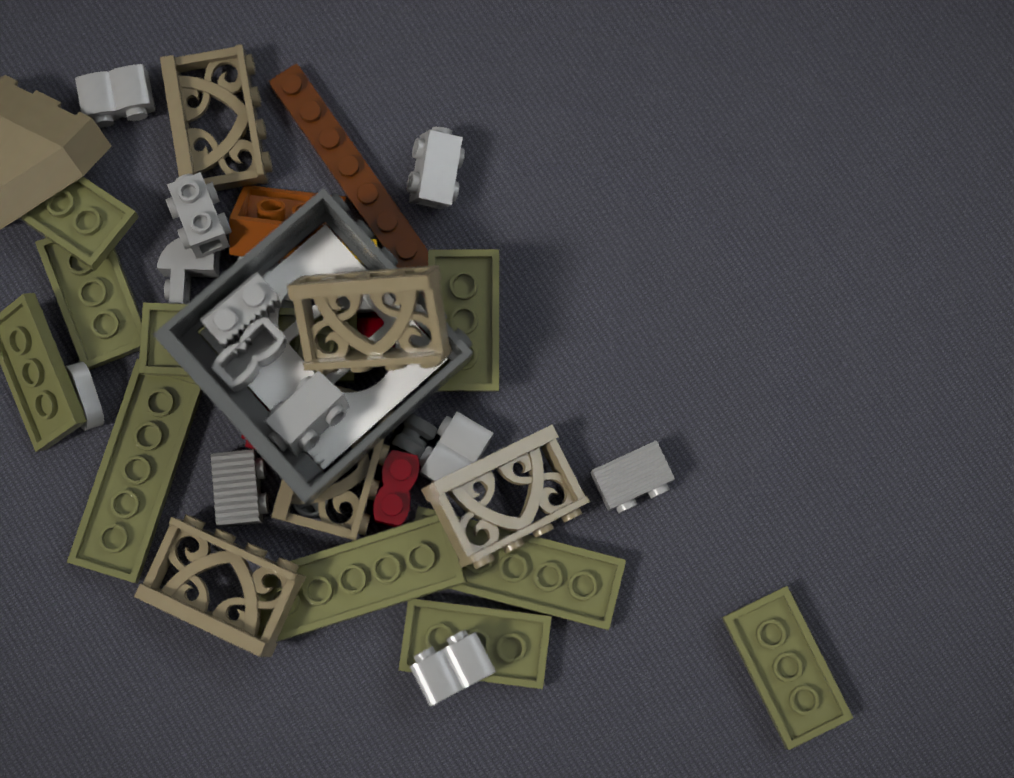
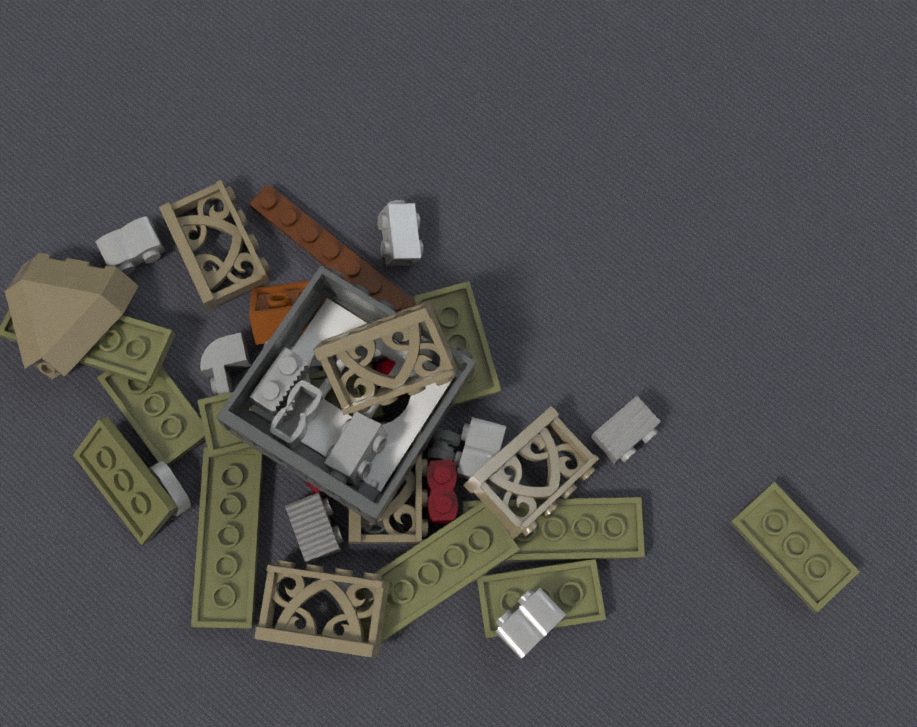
camera: 10 degrees left, 5 degrees down
(194, 204) = (219, 312): light grey brick -> none

